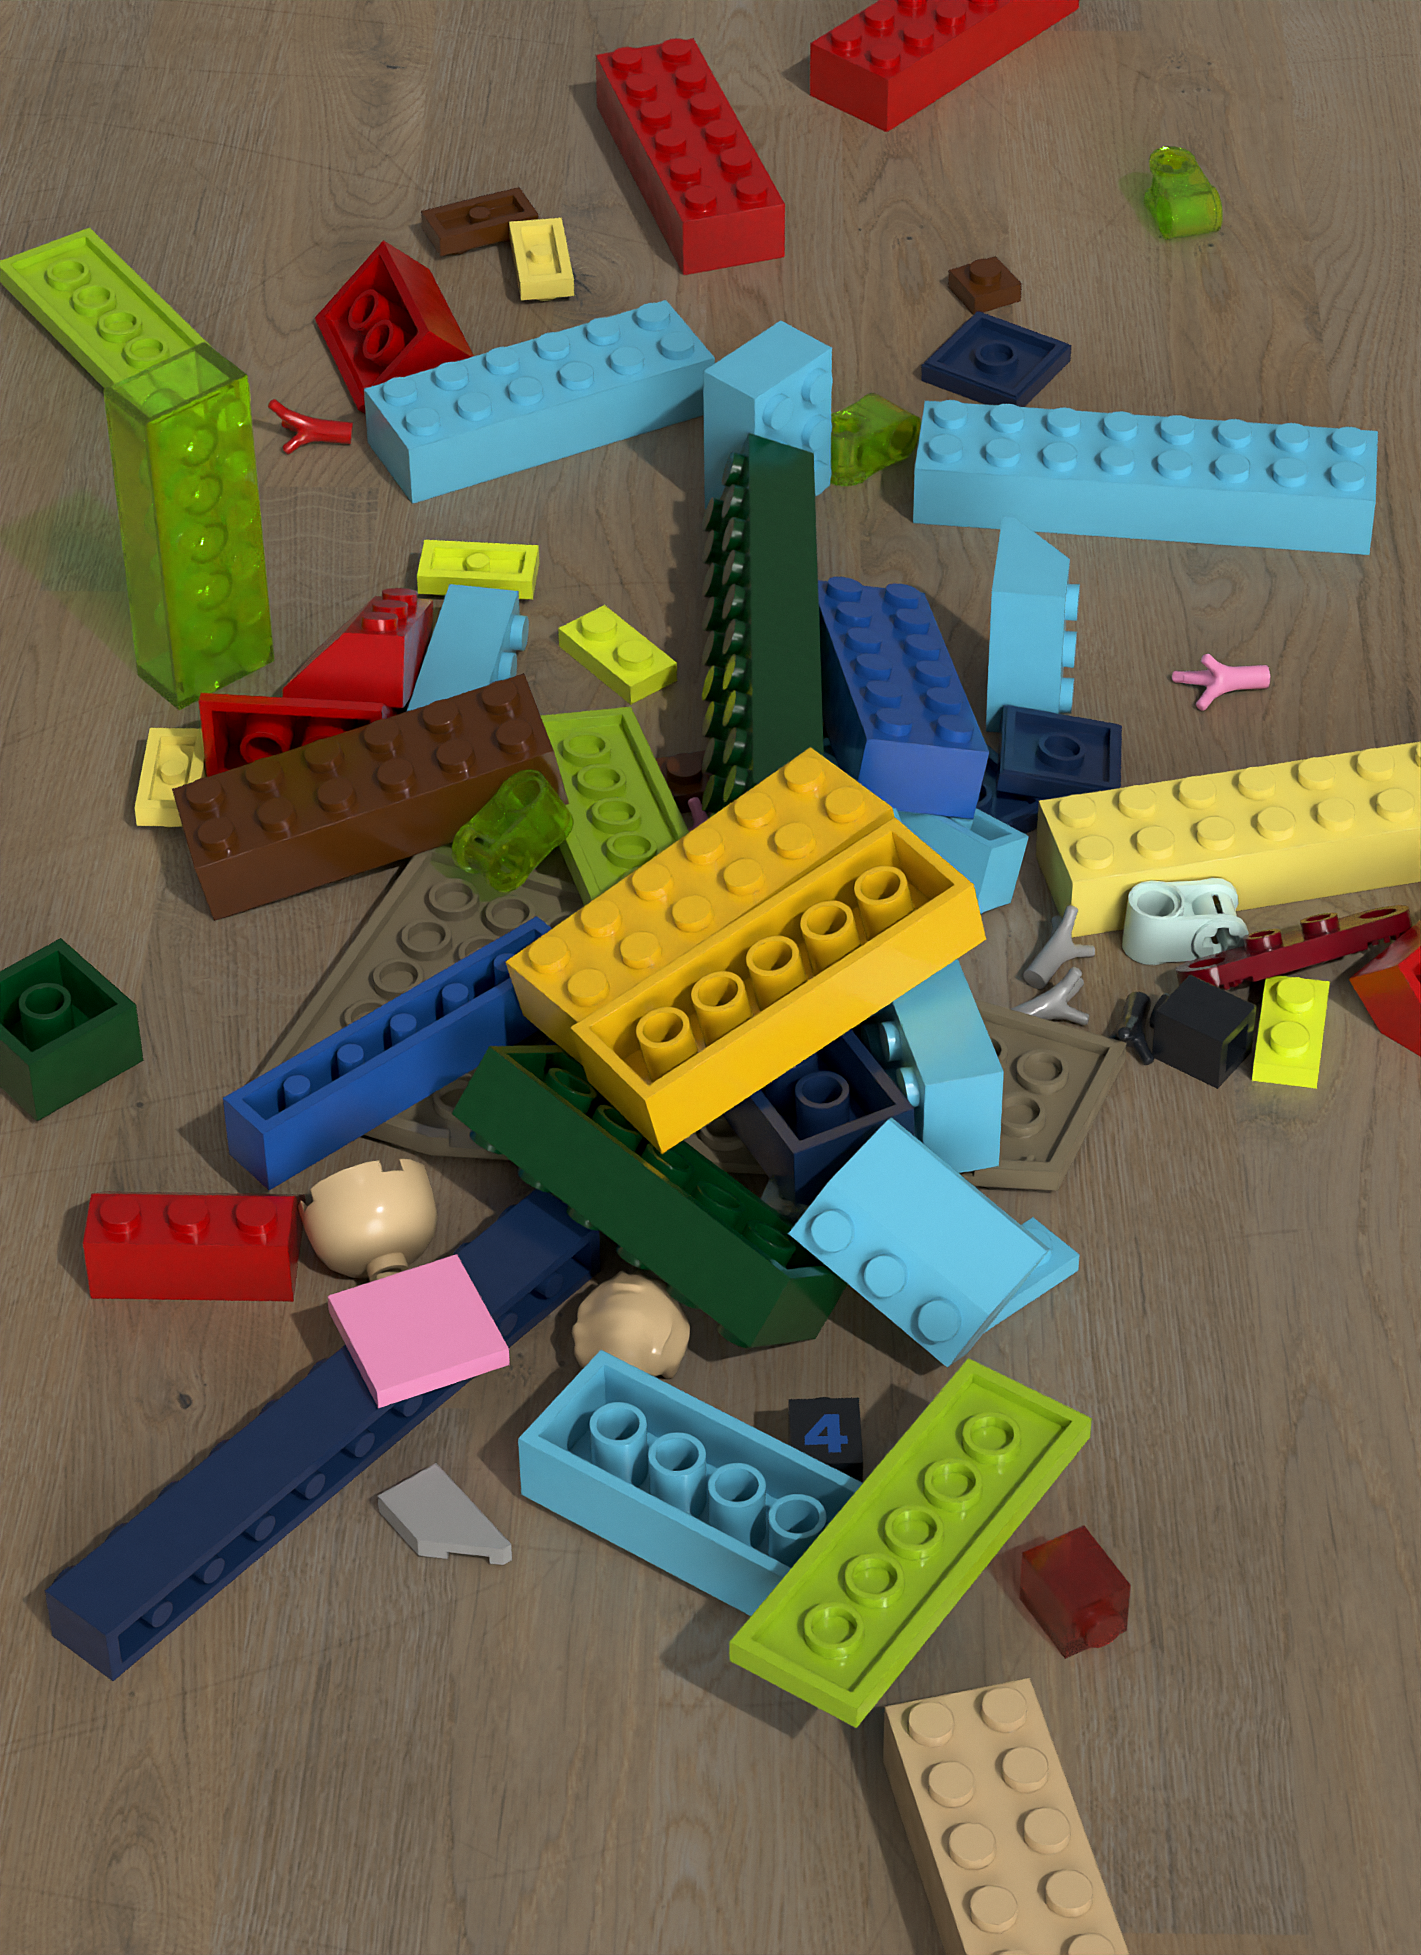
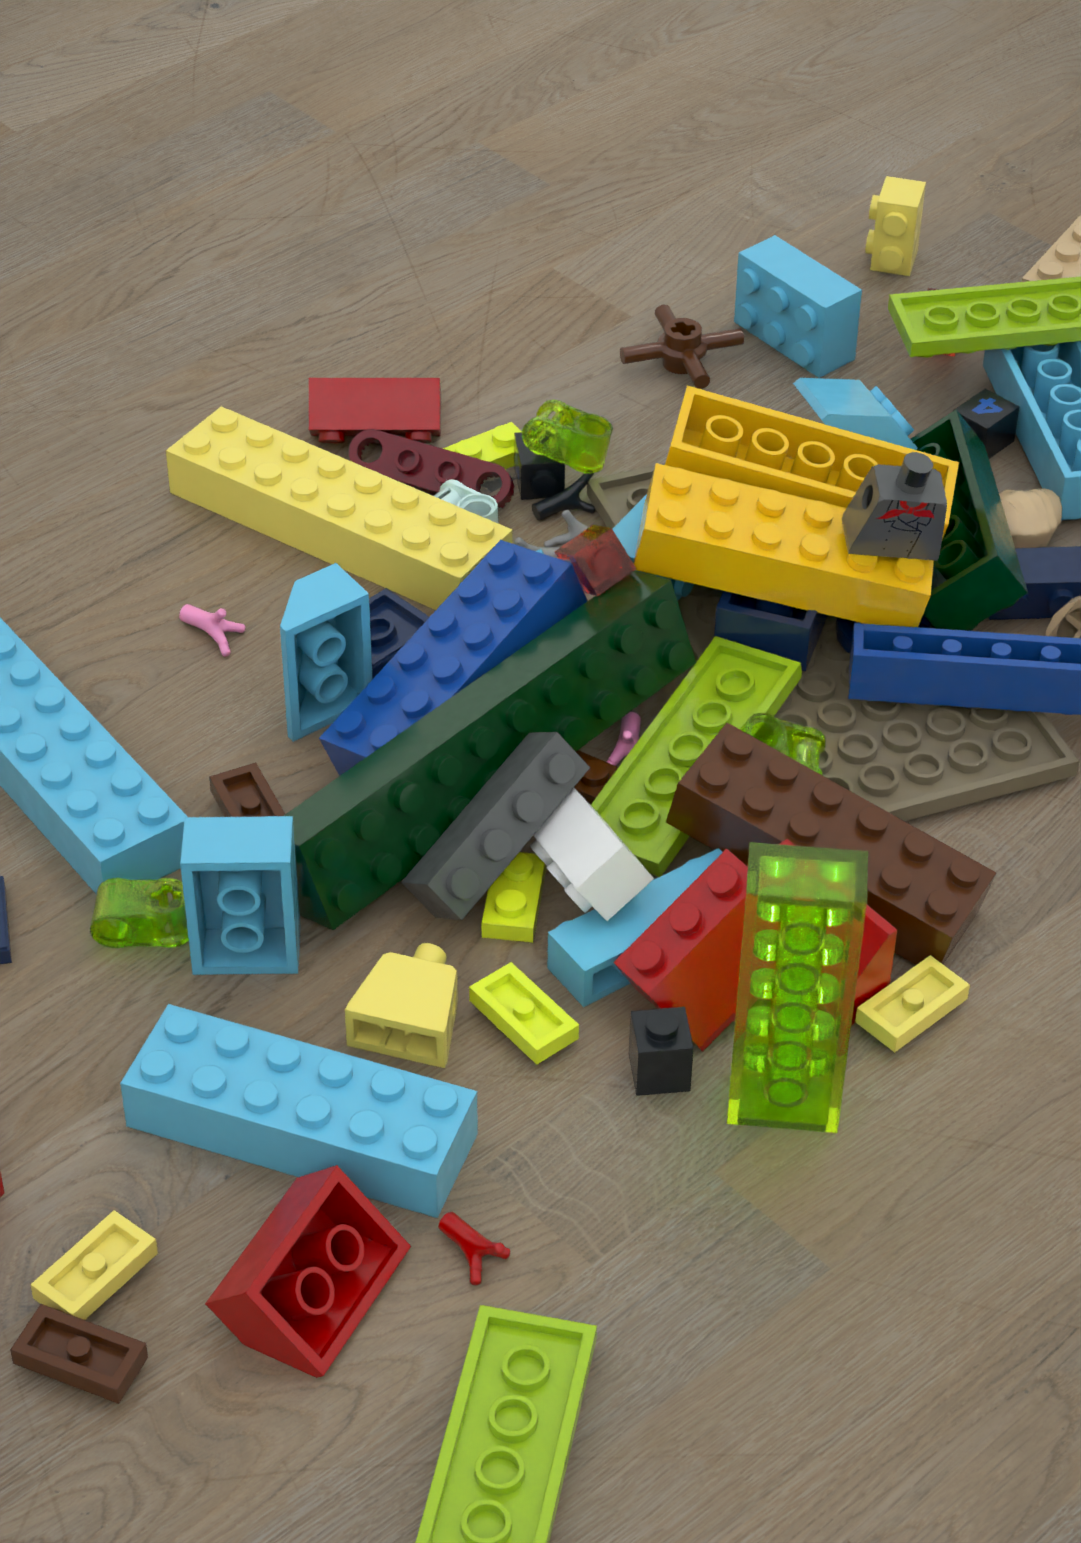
camera: 135 degrees left, 0 degrees up
(325, 593) = (660, 1051): none -> black brick
(556, 636) = (589, 857): none -> white brick
(565, 509) = (406, 1007): none -> light yellow torso
(584, 916) = (898, 511): none -> dark grey torso
(663, 611) = (495, 825): none -> dark grey brick
(866, 757) = (597, 559): none -> clear red brick
(919, 560) = (244, 793): none -> reddish brown plate
(1171, 1002) = (574, 436): none -> clear neon green piece
(1236, 1421) = (797, 306): none -> medium azure brick
(1302, 1305) = (682, 346): none -> reddish brown bar
(1309, 1671) = (897, 225): none -> light yellow brick

